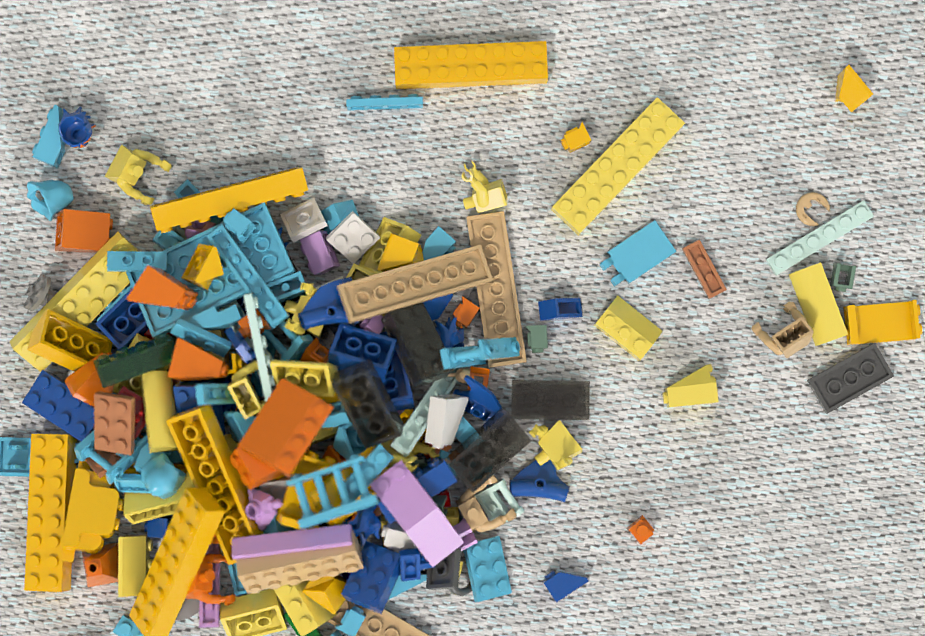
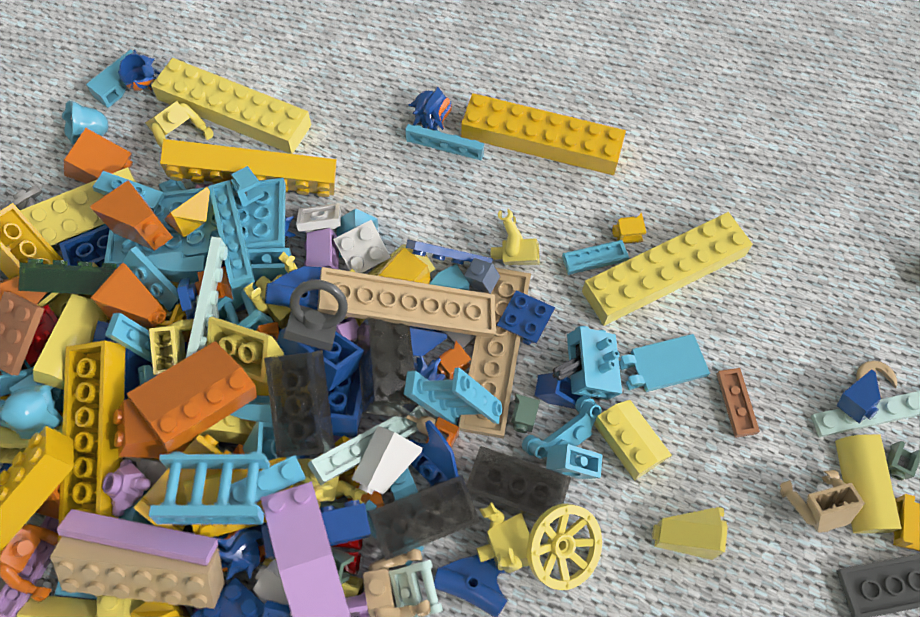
camera: 15 degrees right, 20 degrees down
(174, 130) = (233, 105): none -> light yellow brick
(351, 338) = (310, 325): none -> dark grey tile
(362, 75) = (431, 108): none -> blue hair
(425, 222) = (440, 253): none -> plate
(464, 231) = (482, 275): none -> sand blue brick
(512, 253) = (526, 317): none -> blue hinge
(553, 175) = (595, 257): none -> medium azure plate
(576, 345) = (571, 433): none -> medium azure plate
(579, 278) = (591, 364): none -> medium azure piece
(588, 367) = (574, 461): none -> medium azure brick
(597, 434) = (563, 545): none -> light yellow wheel
(801, 236) = (861, 398): none -> blue slope

